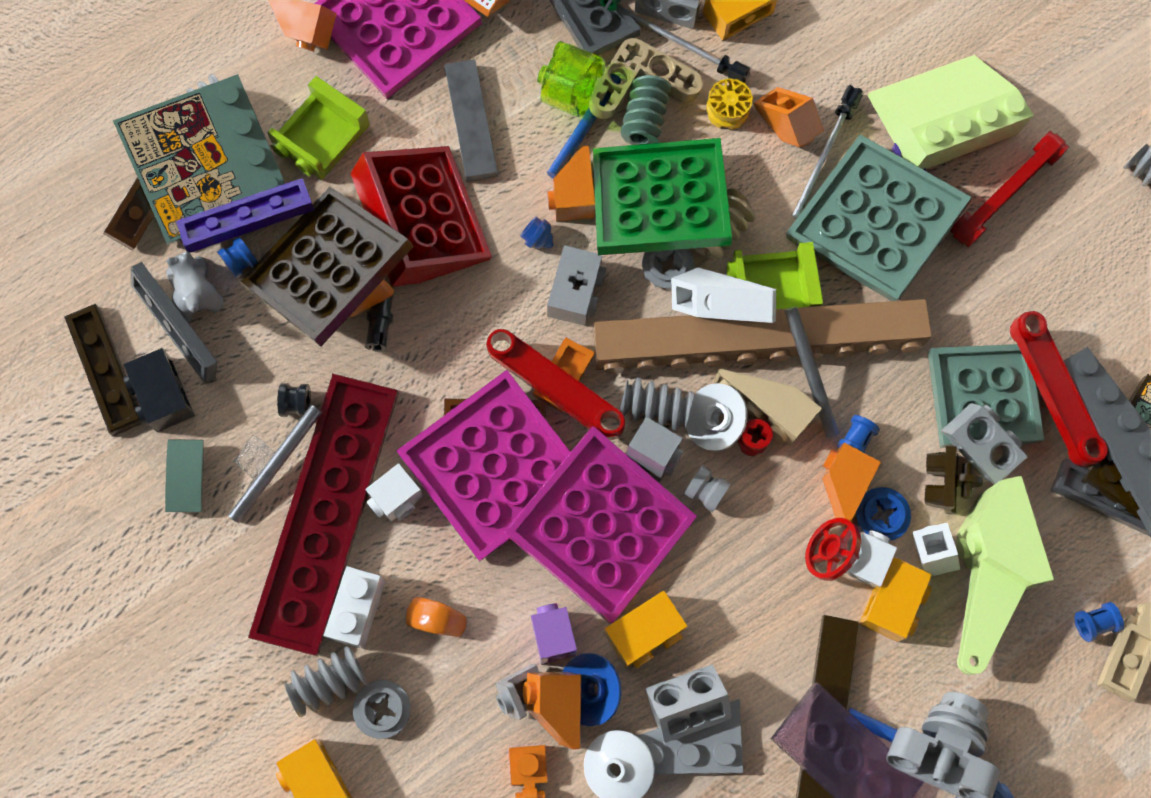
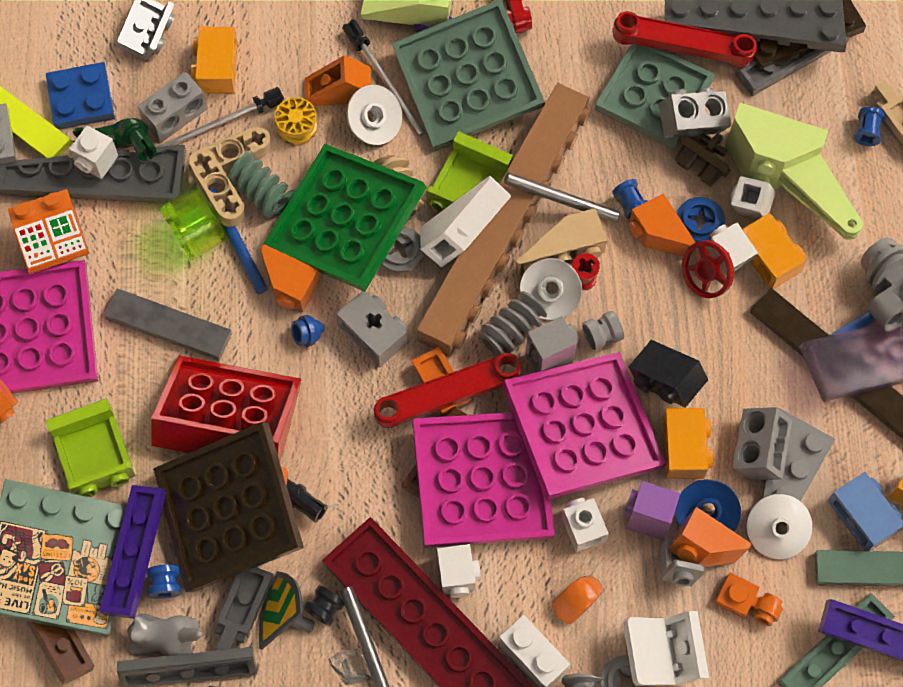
camera: 55 degrees left, 5 degrees down
(251, 335) = (242, 607): none -> dark grey hinge
(269, 369) = (281, 609): none -> shield
(426, 725) = (666, 650): none -> white bracket
(507, 581) = (584, 524): none -> white brick
(700, 572) = (668, 373): none -> black brick
(791, 174) = (385, 111): none -> white dish

